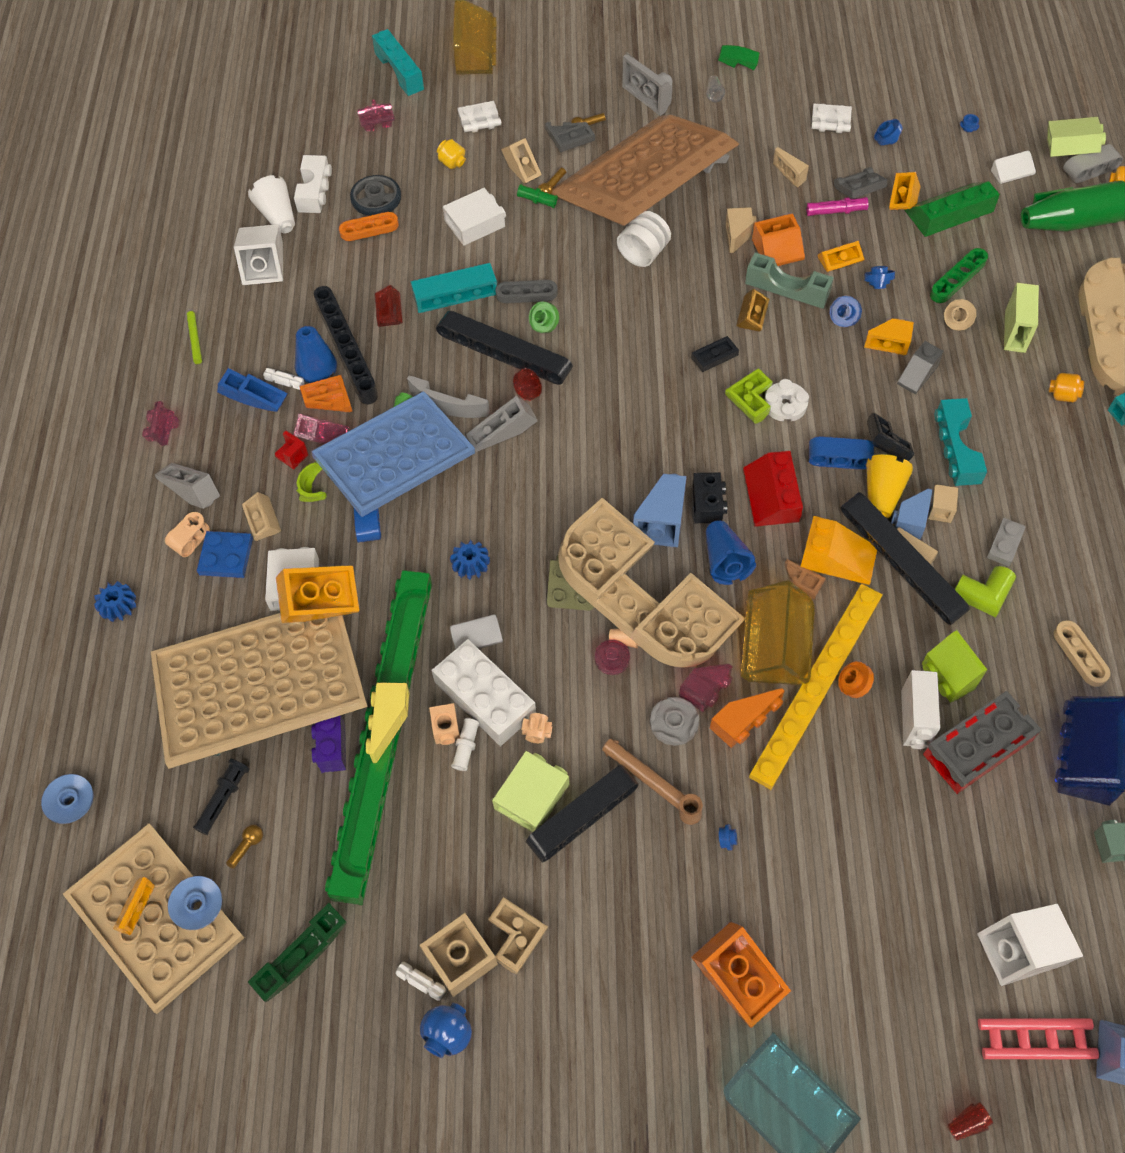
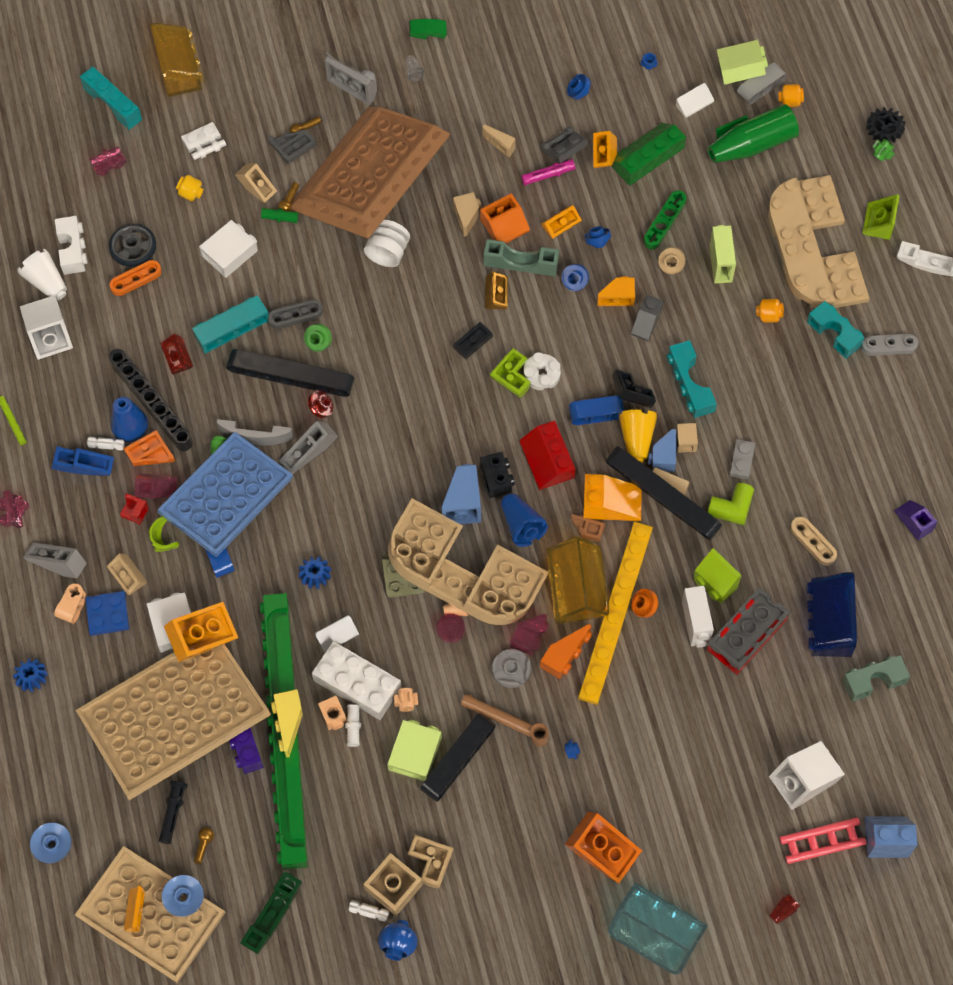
camera: 15 degrees left, 5 degrees up
(831, 118) = (525, 75): white plate -> none

